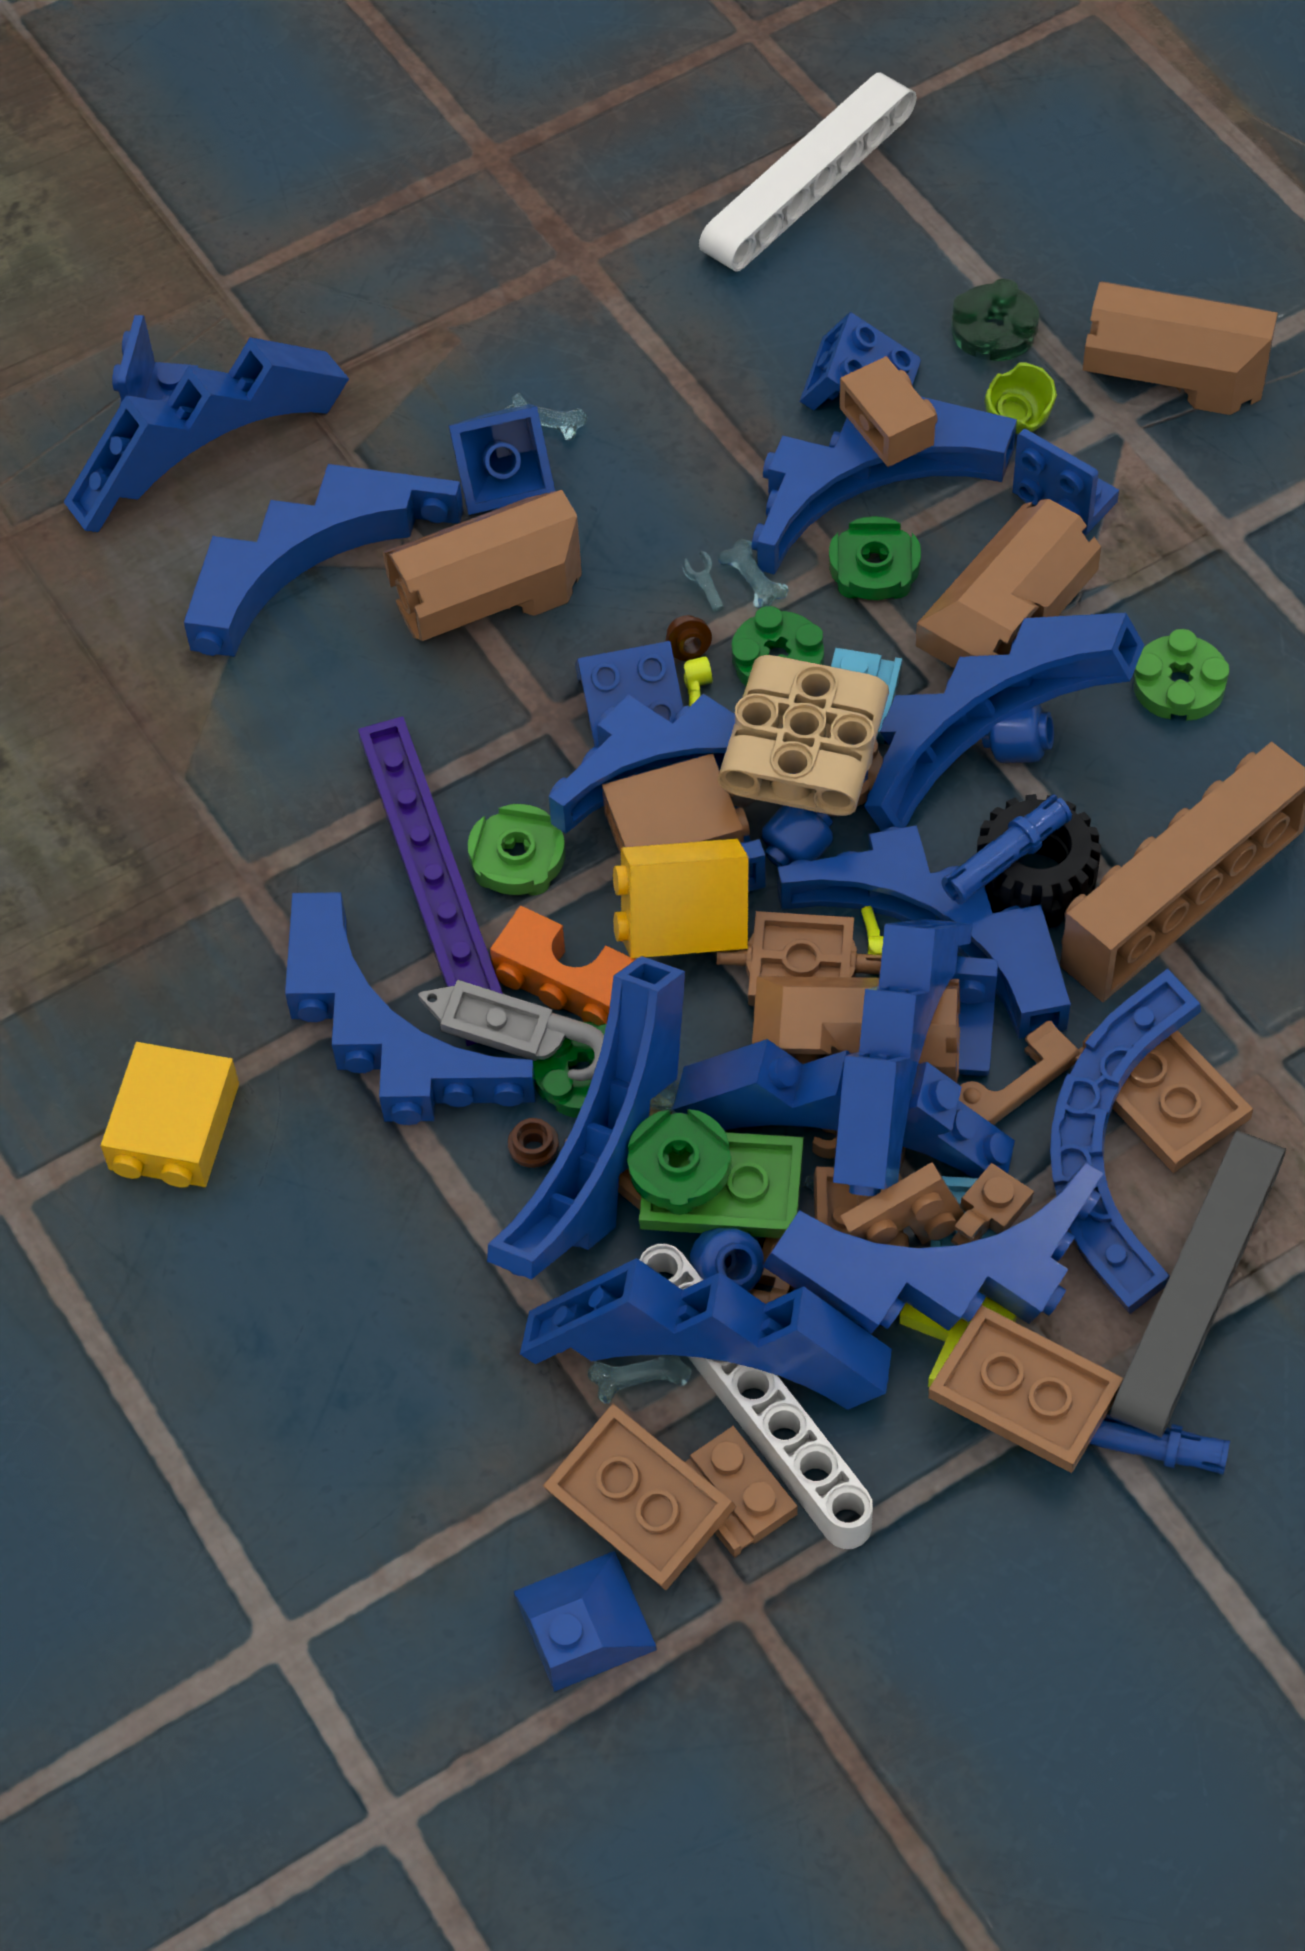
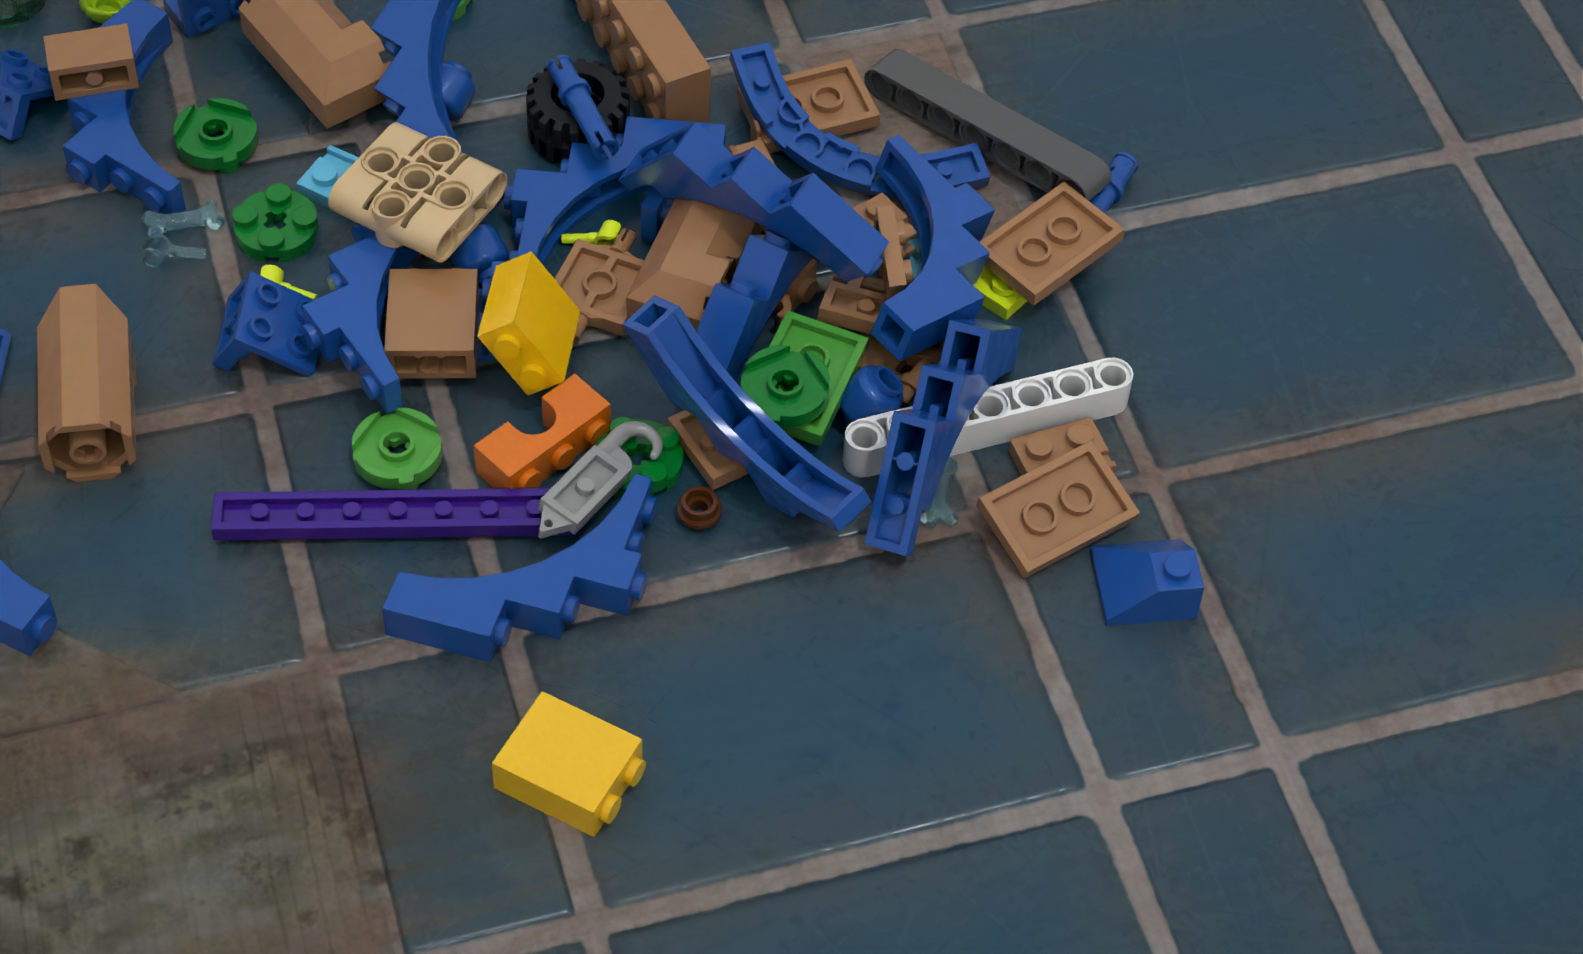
camera: 80 degrees left, 5 degrees down
(685, 628) = (231, 272): reddish brown plate -> none

